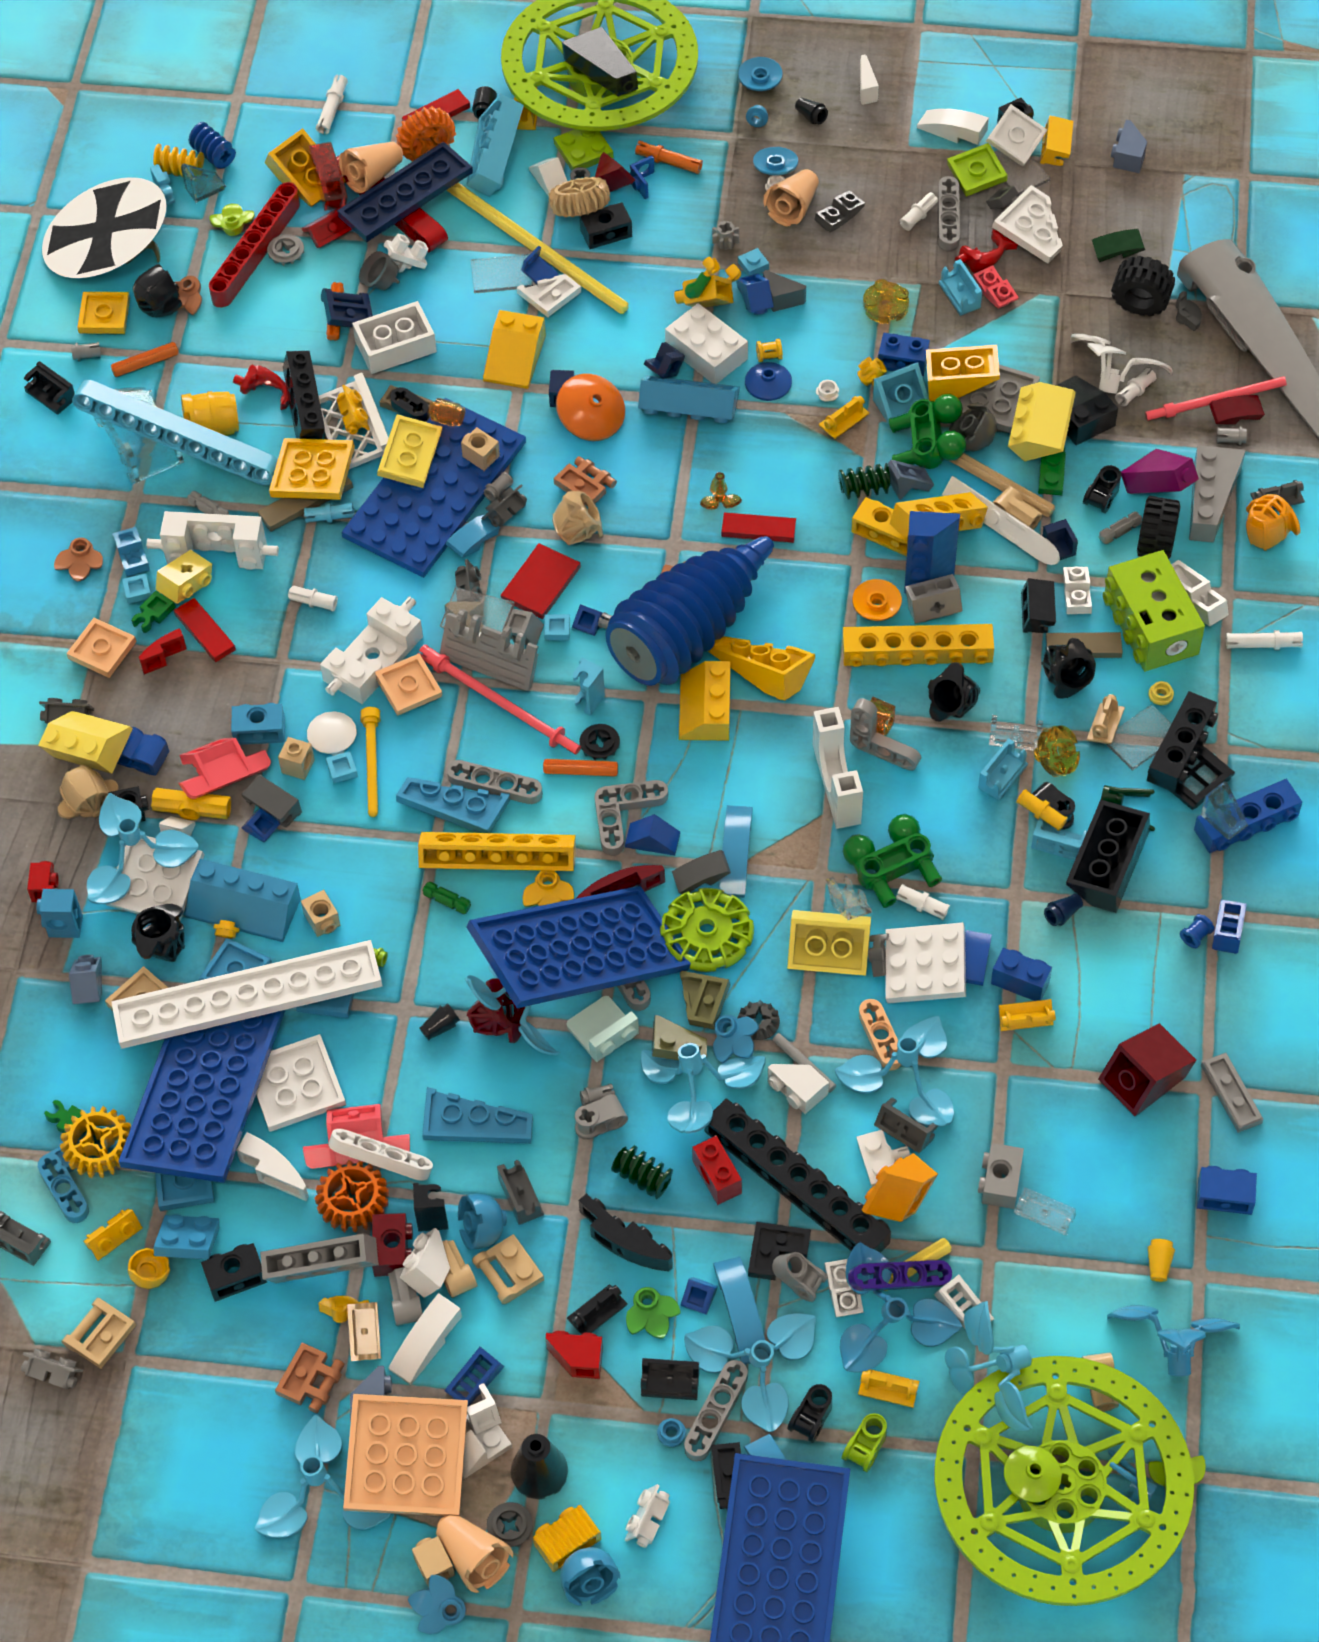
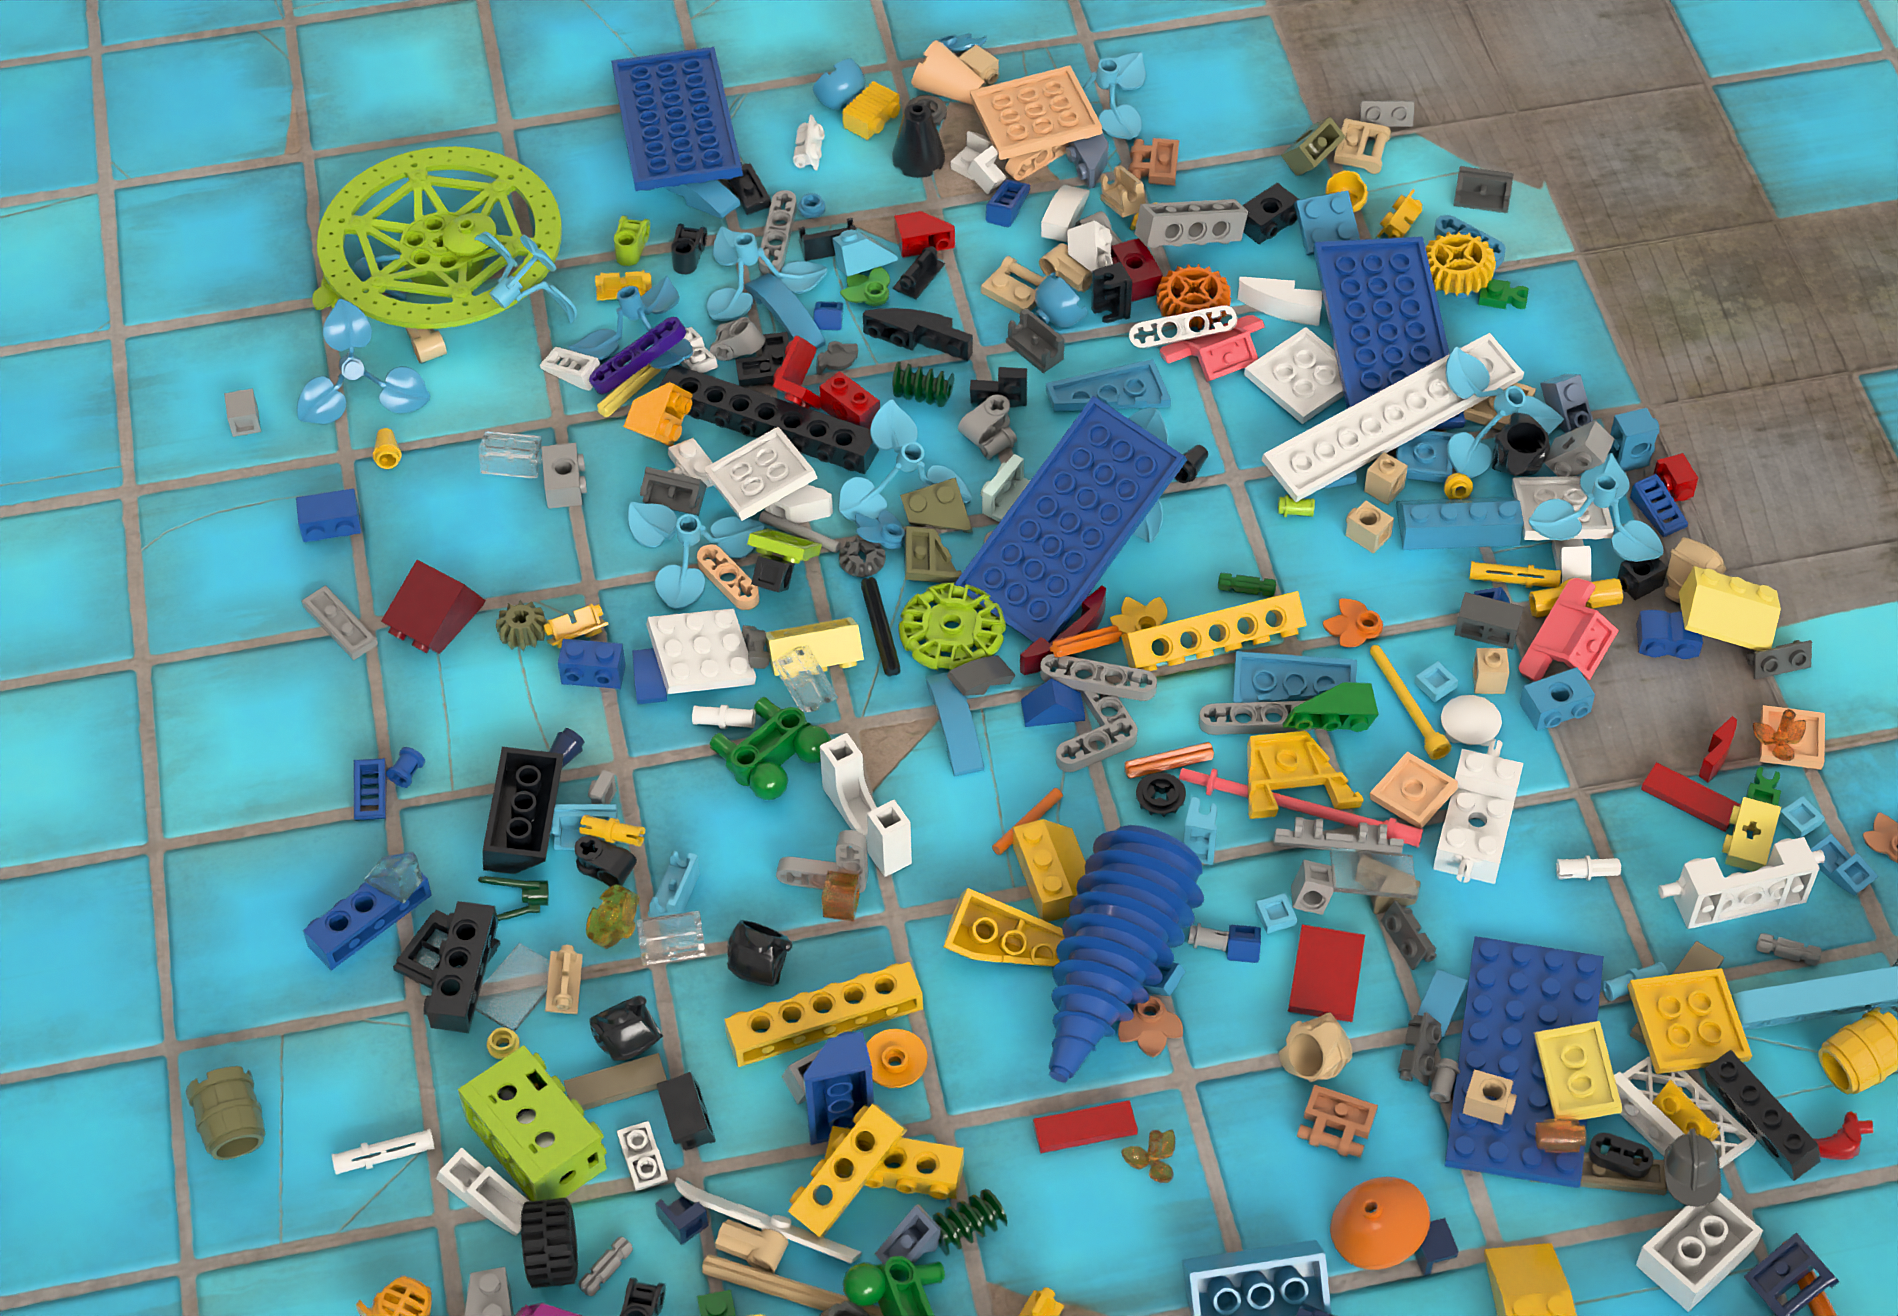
camera: 160 degrees right, 5 degrees down
(73, 882) = (1649, 490): none -> blue slope
(111, 913) = (1579, 450): none -> light grey brick
(116, 630) = (1788, 732): none -> clear orange plant
(135, 1332) = (1313, 146): none -> olive brick
(151, 952) = (1470, 376): none -> medium azure plant
(219, 835) = (1551, 578): none -> yellow pin
(281, 946) = (1385, 478): none -> tan brick
(374, 368) = (1692, 1170): none -> dark grey piece
(381, 840) = (1353, 623): none -> orange plate
(436, 755) = (1341, 707): none -> green slope
(494, 731) = (1291, 762): none -> yellow wing
(566, 1136) = (1010, 384): none -> black plate
(610, 866) = (1085, 641): none -> orange axle
(611, 834) = (1100, 672): none -> light grey beam
(641, 1343) = (860, 253): none -> medium azure slope
(709, 1237) = (837, 357): none -> dark grey piece
(710, 752) = (1033, 815): none -> orange bar
(759, 1192) = (791, 374): none -> red bracket
(766, 949) = (880, 626): none -> black axle
(824, 1033) = (791, 547): none -> lime plate
(825, 1099) = (760, 473): none -> white plate
(842, 1011) = (772, 573): none -> black brick
(1039, 862) = (603, 789): none -> light grey plate
(1080, 1039) = (521, 625): none -> olive gear
(1293, 1341) = (242, 412): none -> light grey brick

